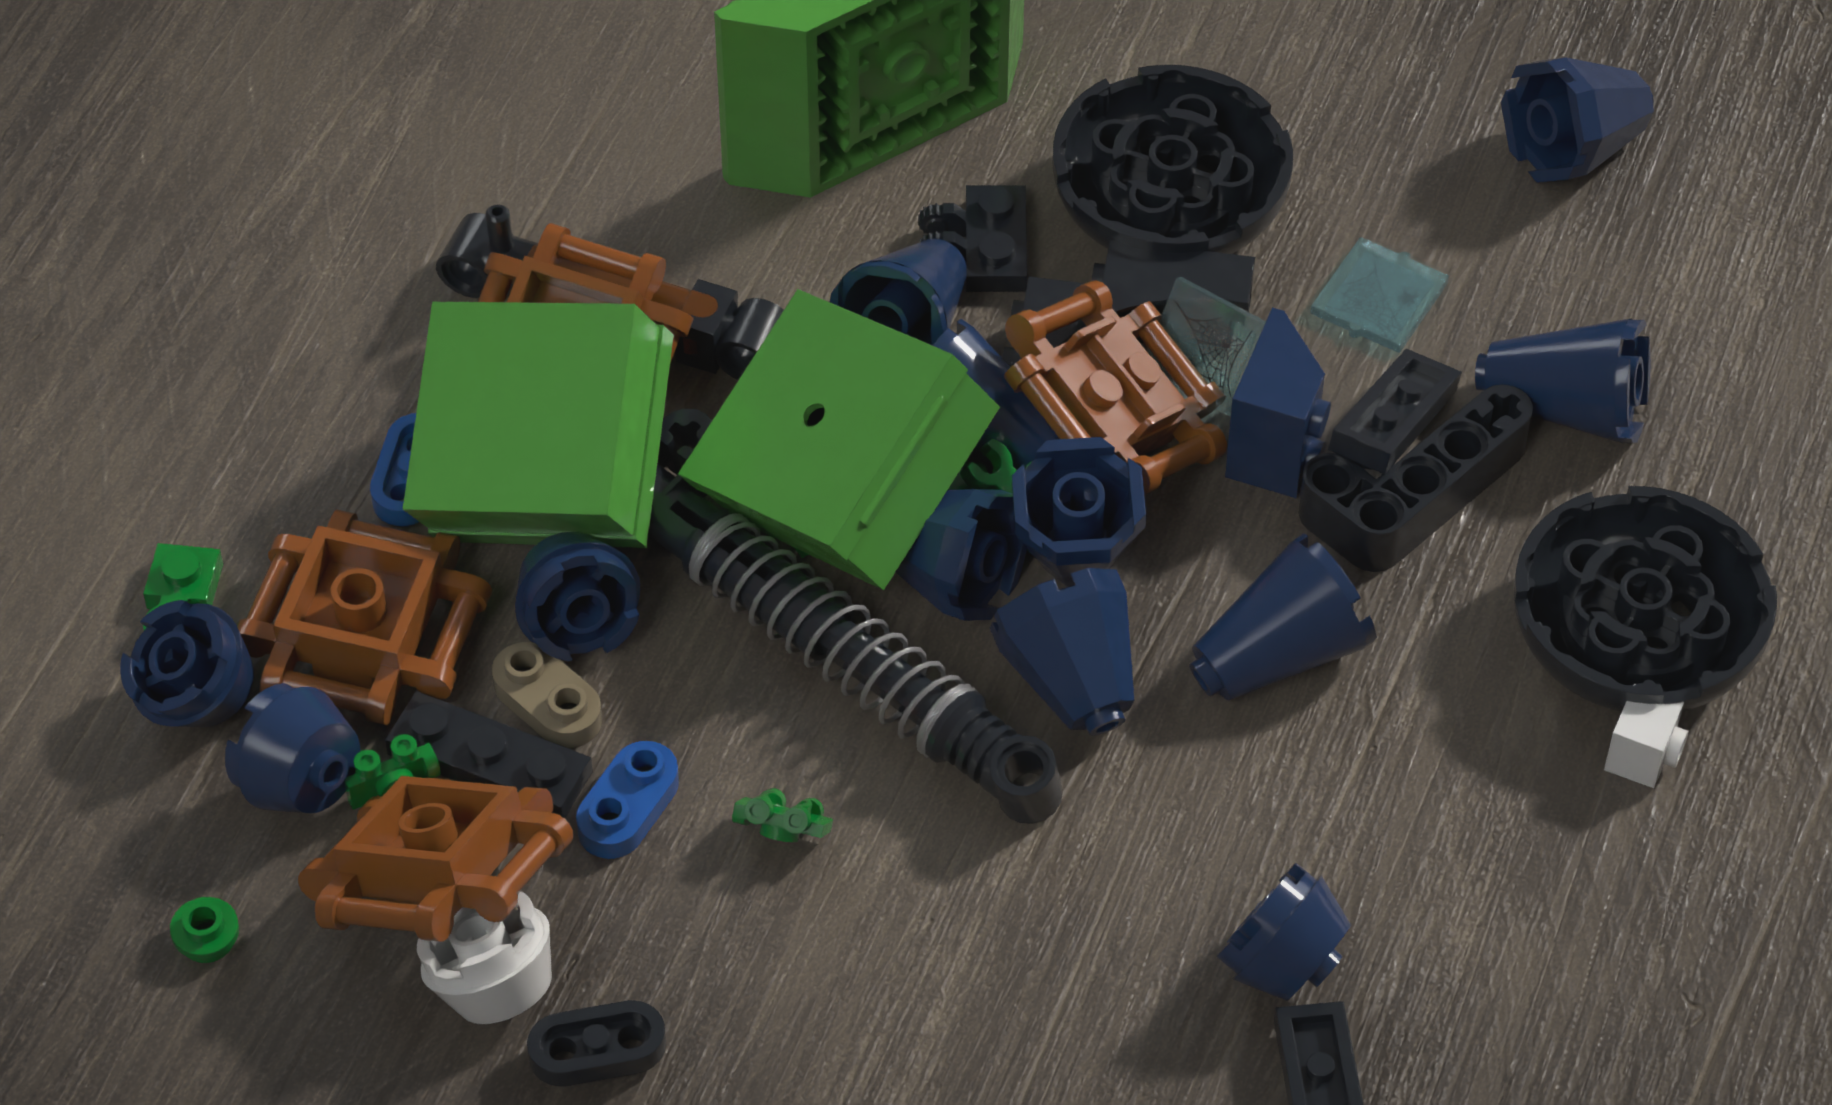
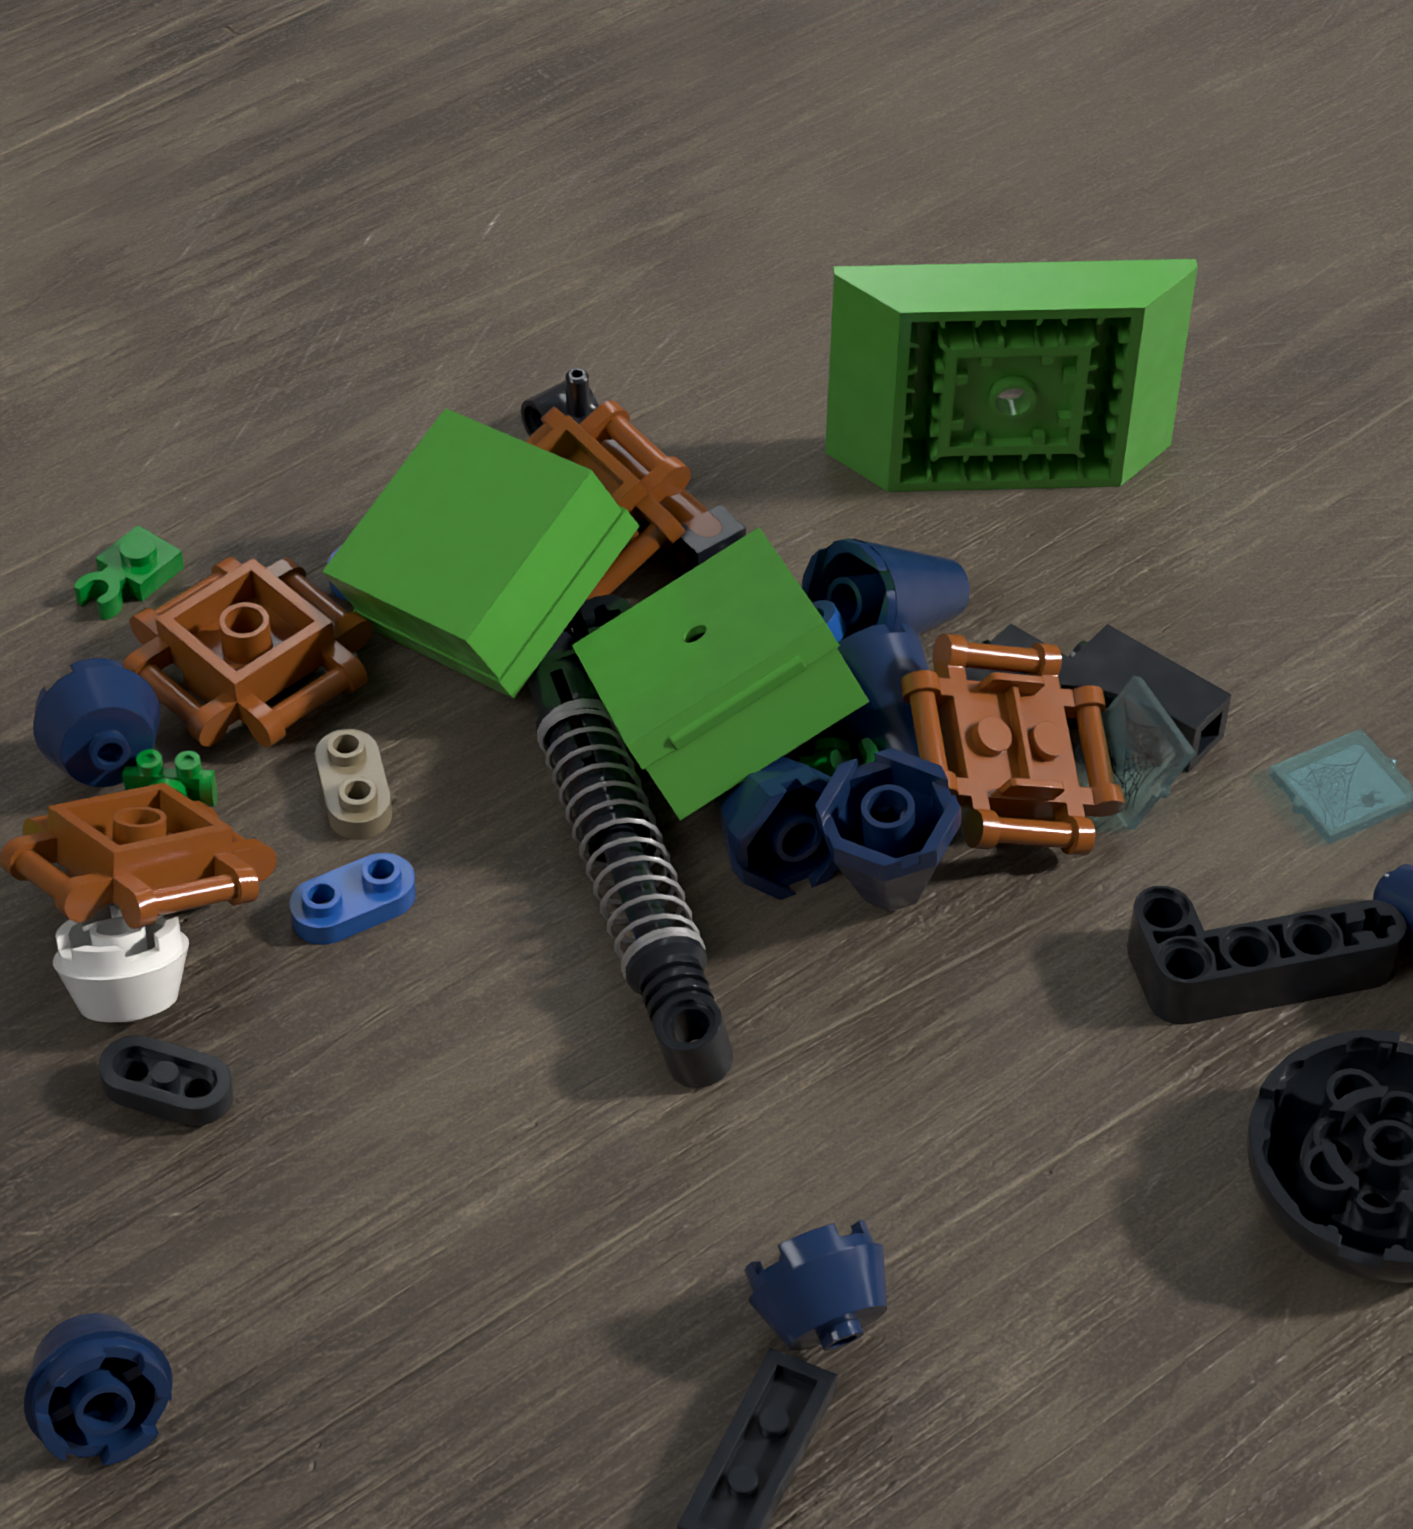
camera: 30 degrees right, 5 degrees down
(188, 666) = (72, 620): dark blue cone -> none
(491, 752) = (271, 810): black plate -> none
(576, 595) = (422, 709): dark blue cone -> none
(780, 821) = (464, 972): green piece -> none
(993, 232) = (1020, 582): black hinge -> none
(1073, 647) = (818, 945): dark blue cone -> none
(1134, 151) = (1215, 585): black brick -> none
(1277, 411) = (1147, 825): dark blue slope -> none
(1282, 624) = (1022, 1018): dark blue cone -> none
(1394, 411) = (1270, 883): black plate -> none
(1645, 741) = (1308, 1287): white plate -> none

